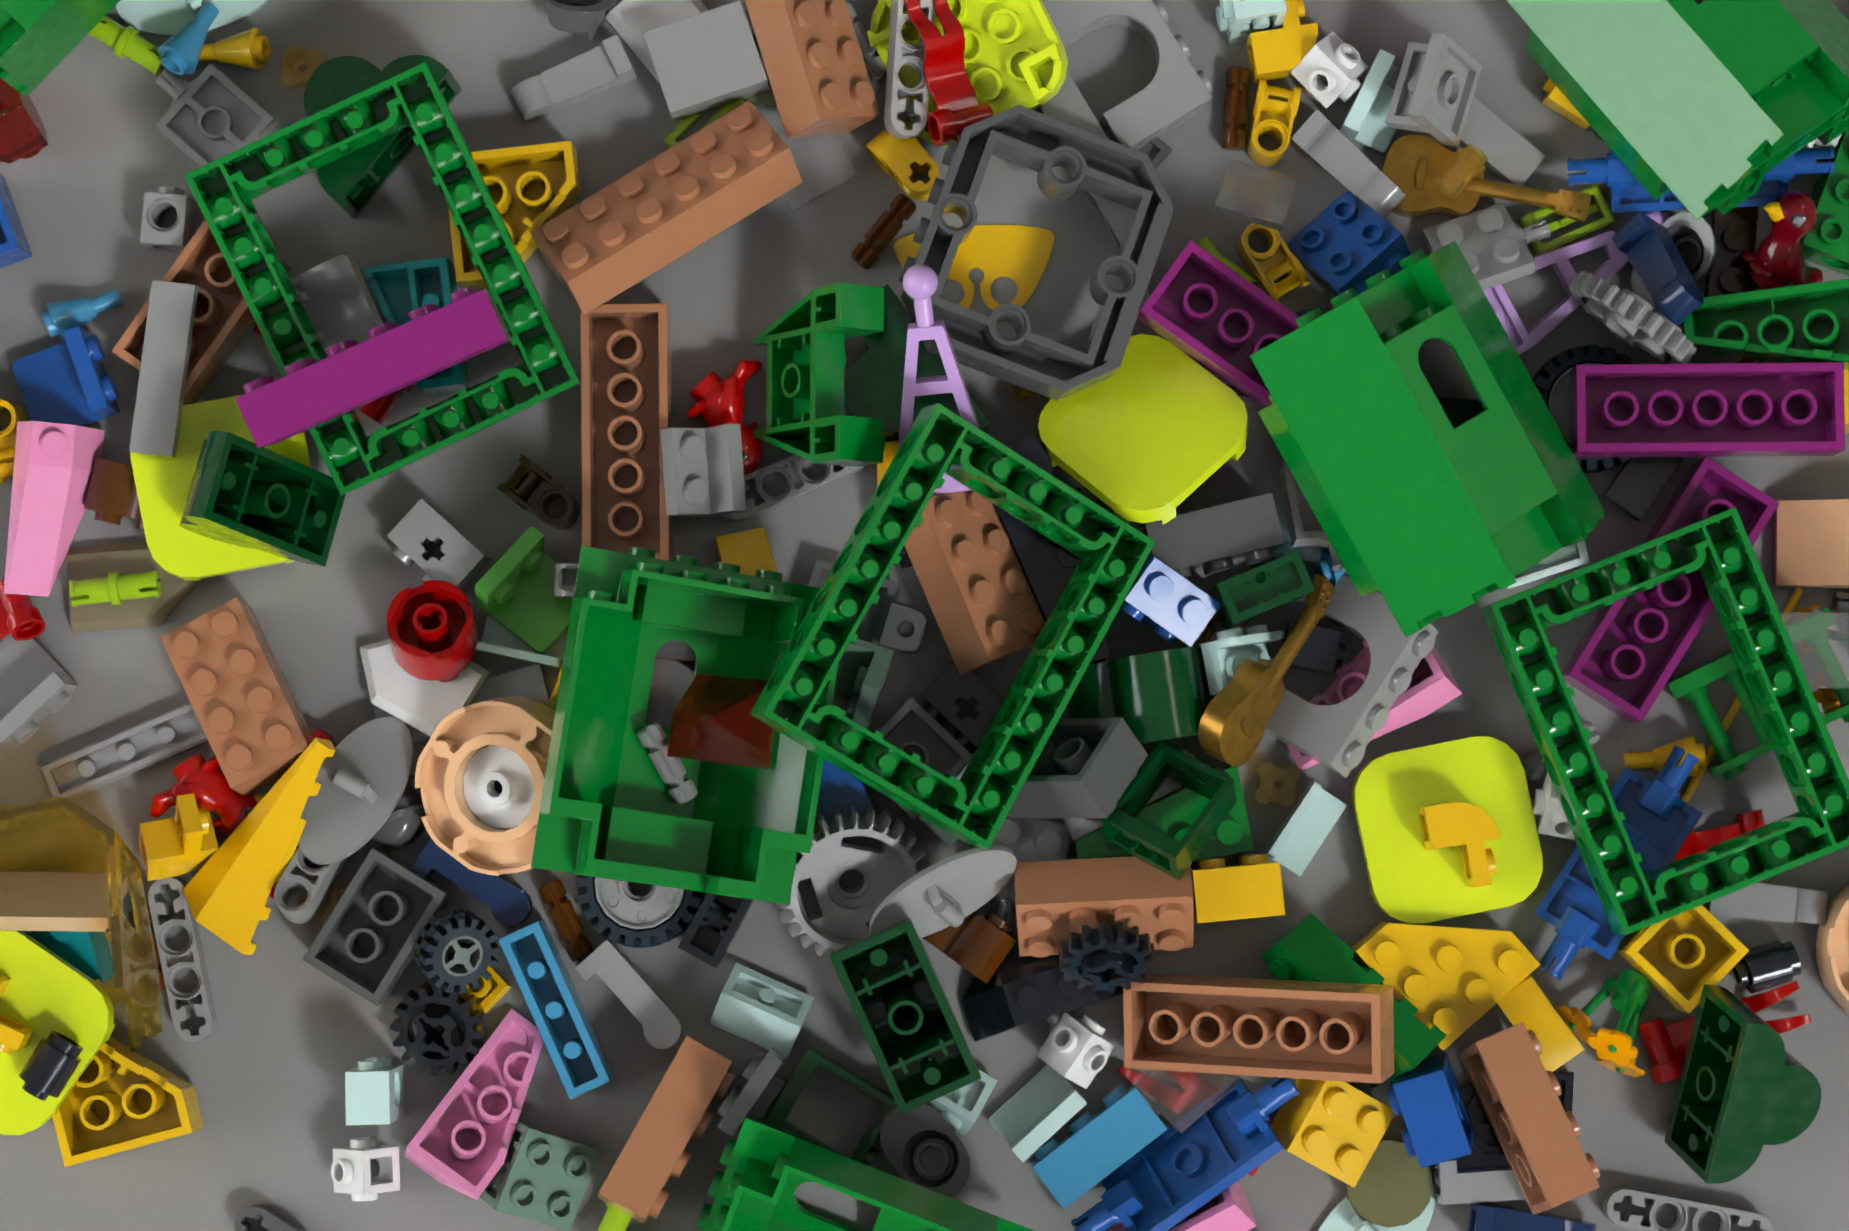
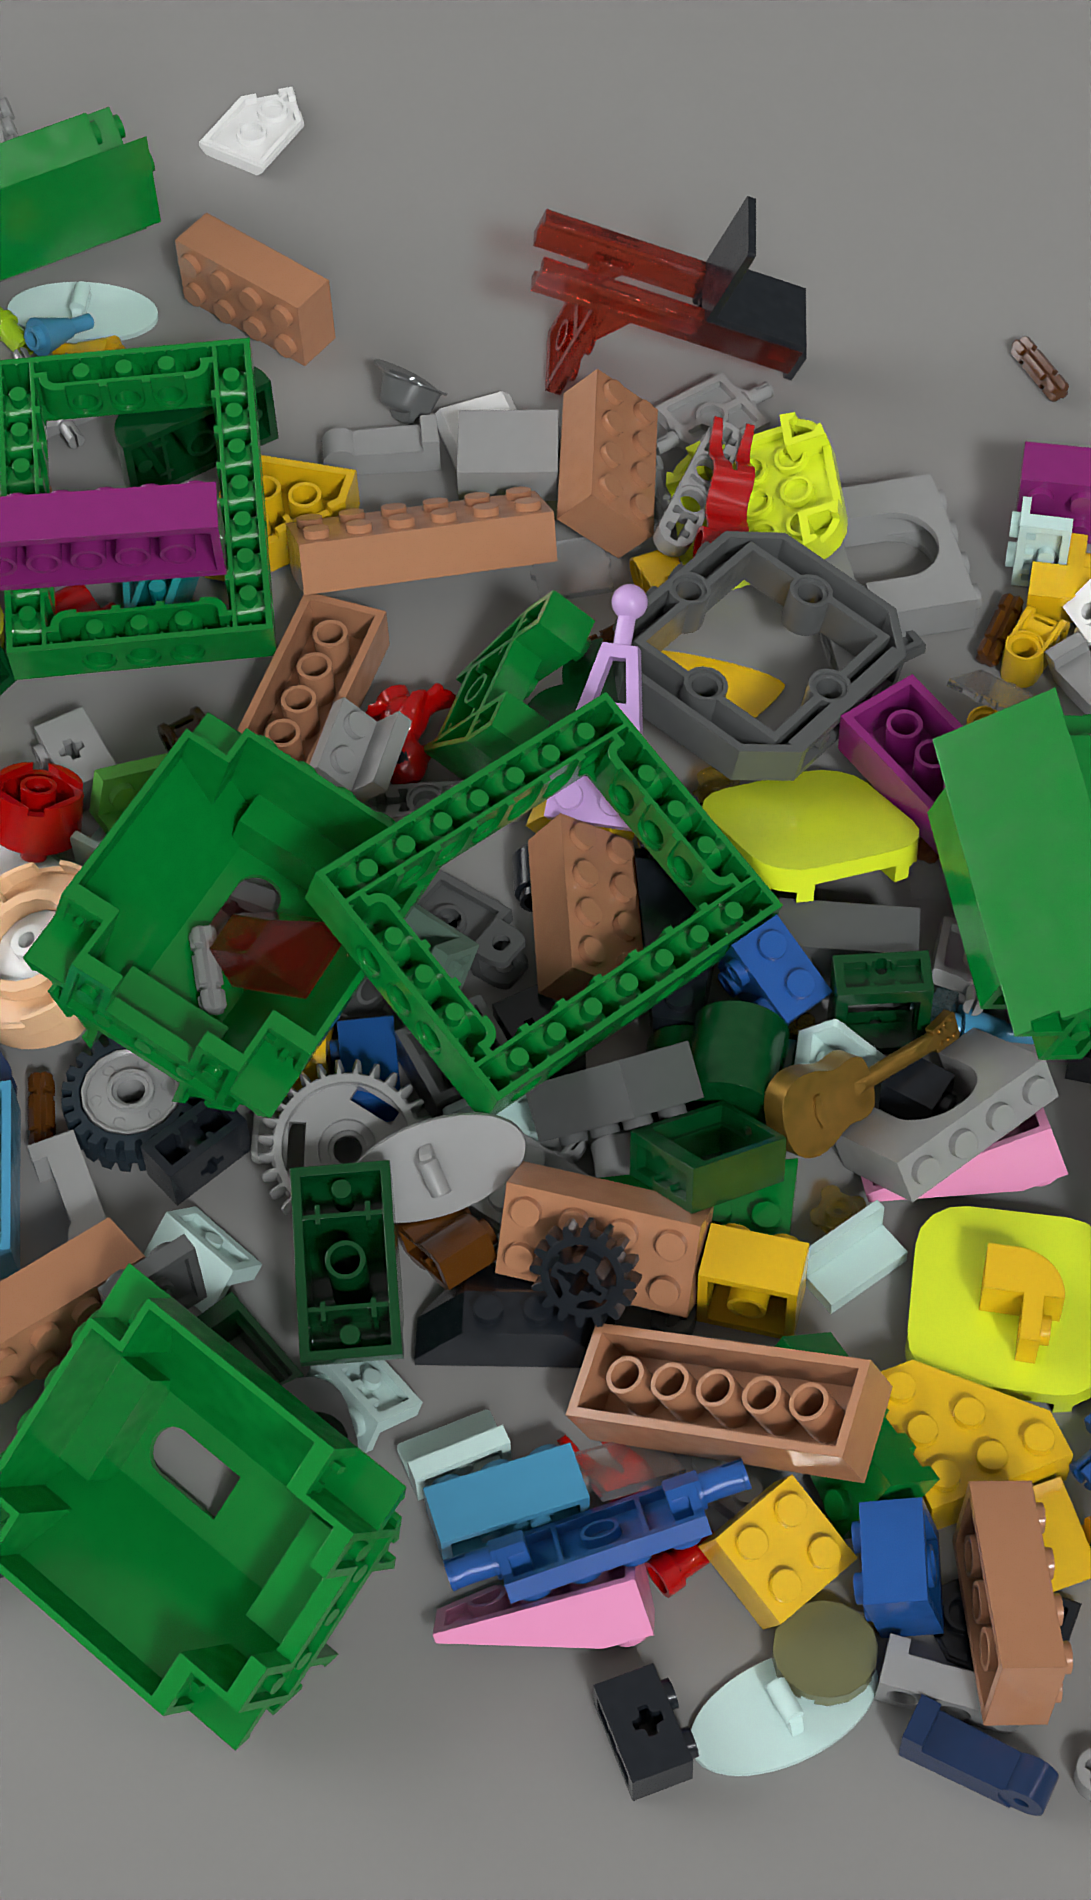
camera: 20 degrees right, 30 degrees down
(1076, 1049) = (521, 1391): white brick -> none

